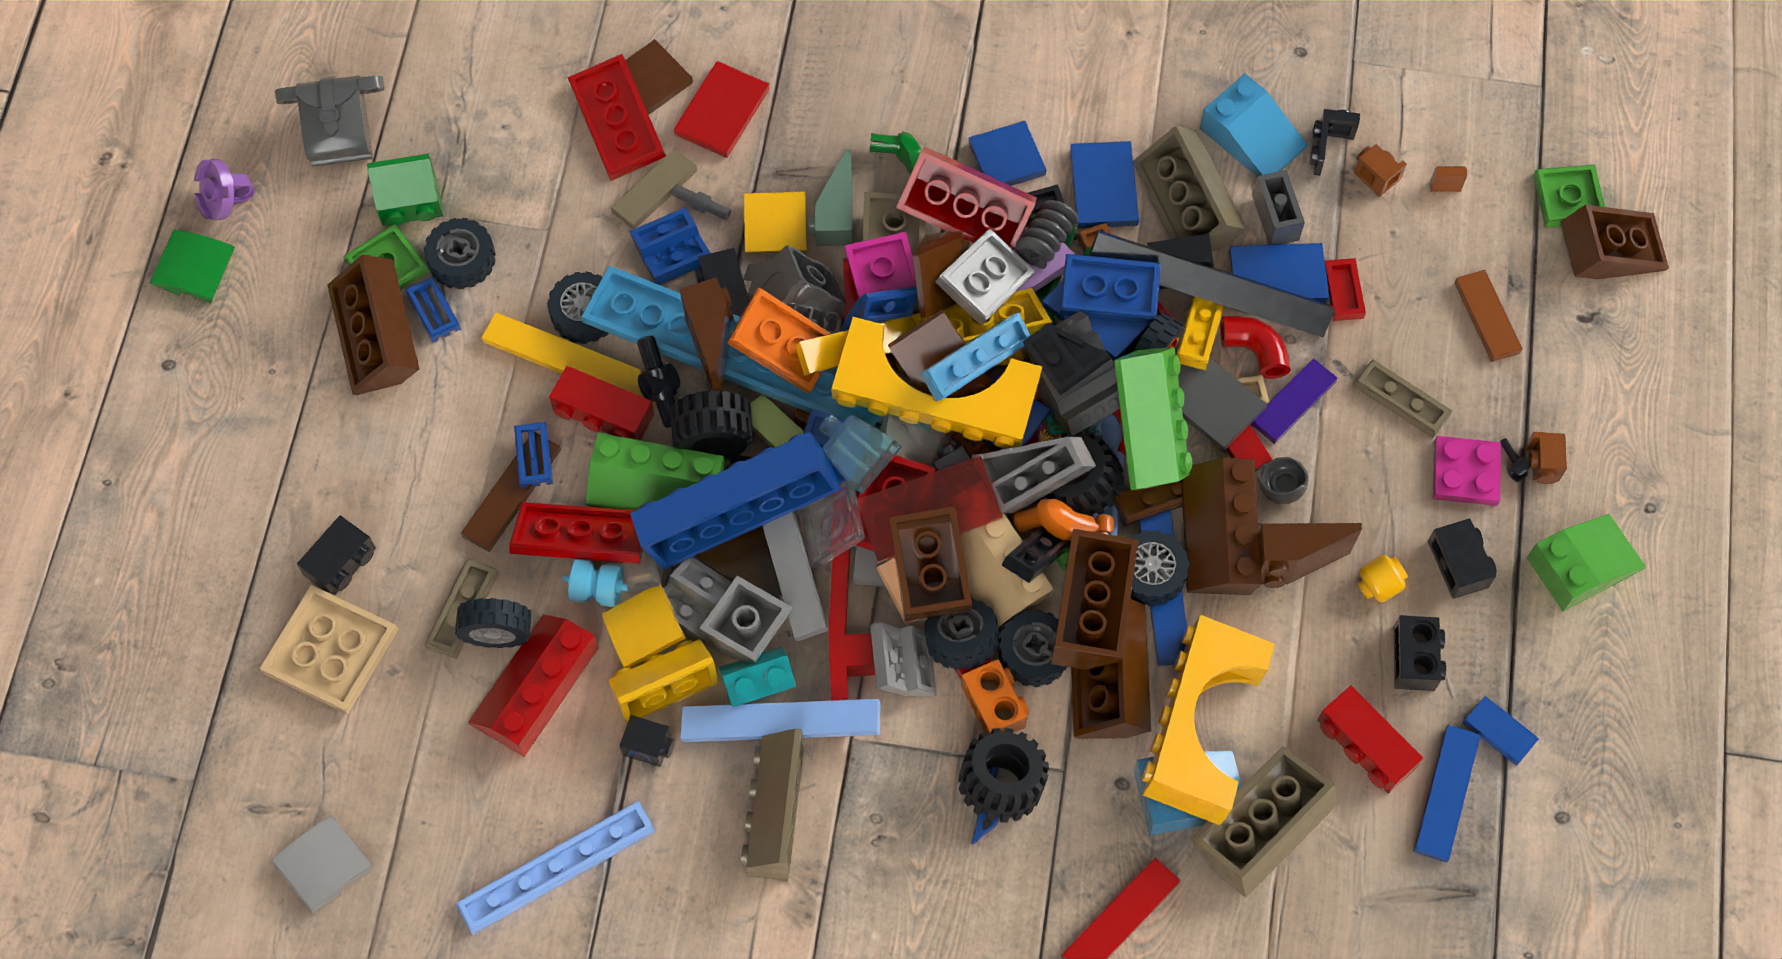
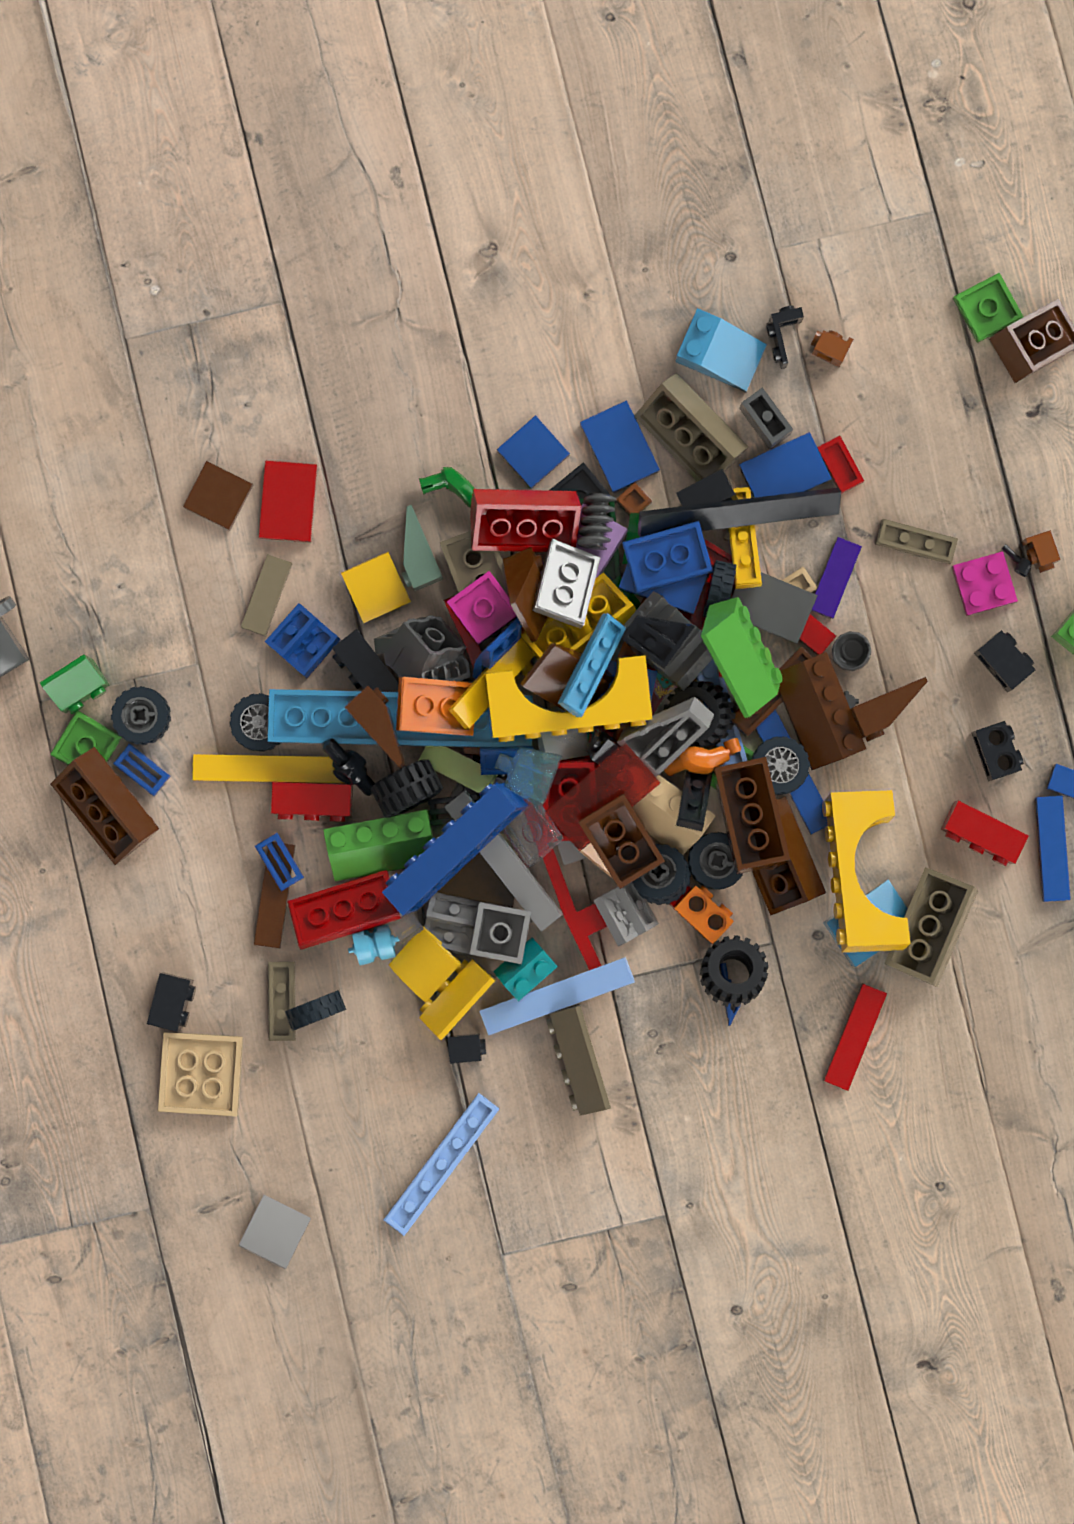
camera: 20 degrees left, 20 degrees up
(535, 683) = (362, 1038): red slope -> none
(616, 117) = (208, 545): red tile -> none
(701, 202) = (309, 592): dark grey bar -> none
(1261, 340) = (792, 538): red cylinder -> none
(1382, 578) = (951, 702): yellow head -> none
(1448, 179) = (889, 334): dark orange tile -> none
(1488, 315) = (958, 442): dark orange tile -> none

